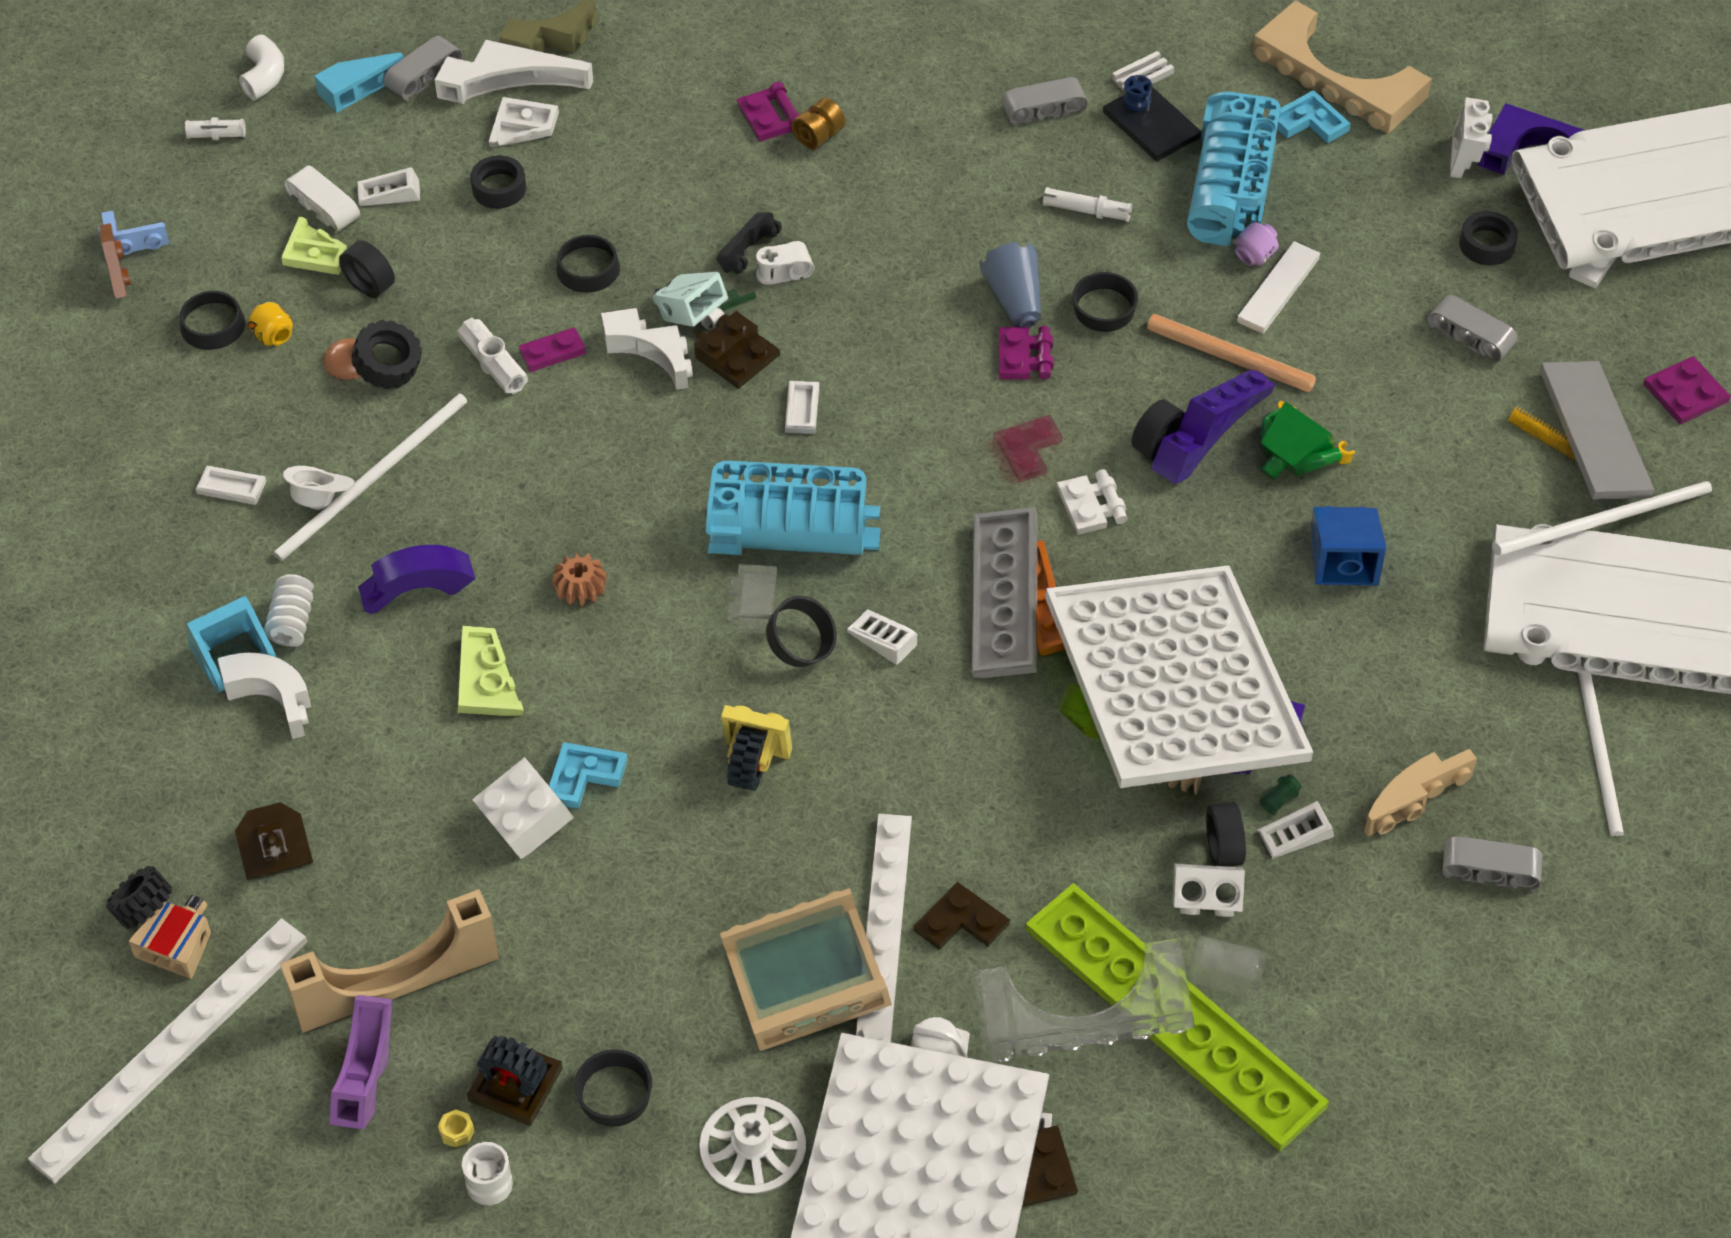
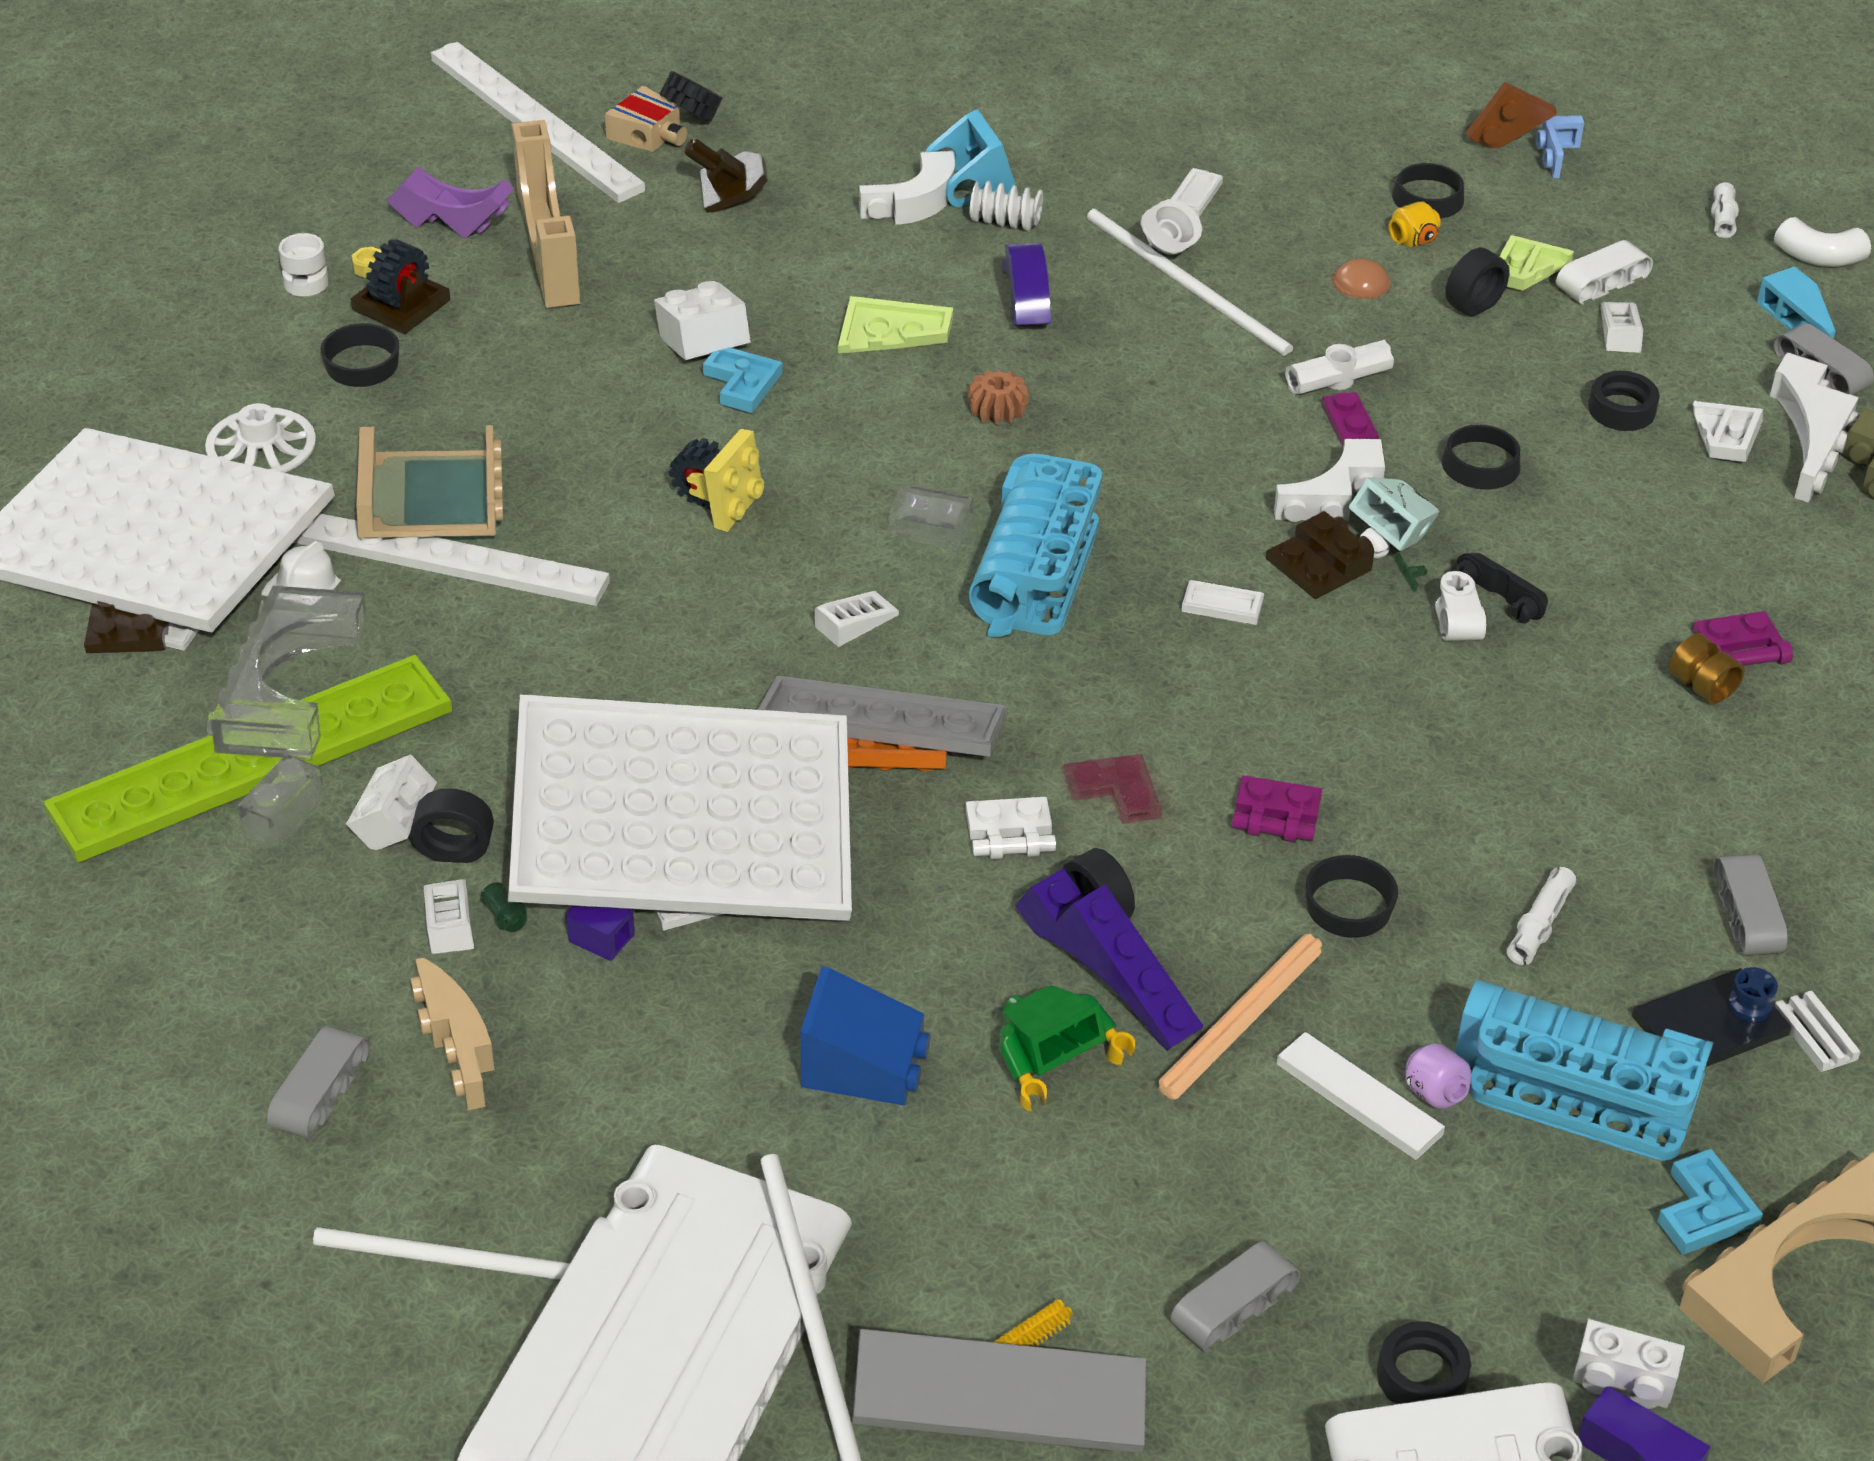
camera: 100 degrees right, 10 degrees down
(396, 336) = (1344, 267): black tyre -> none
(819, 615) = (846, 509): black tyre -> none
(959, 910) = (457, 620): dark brown plate -> none
(1014, 280) = (1383, 803): sand blue cone -> none

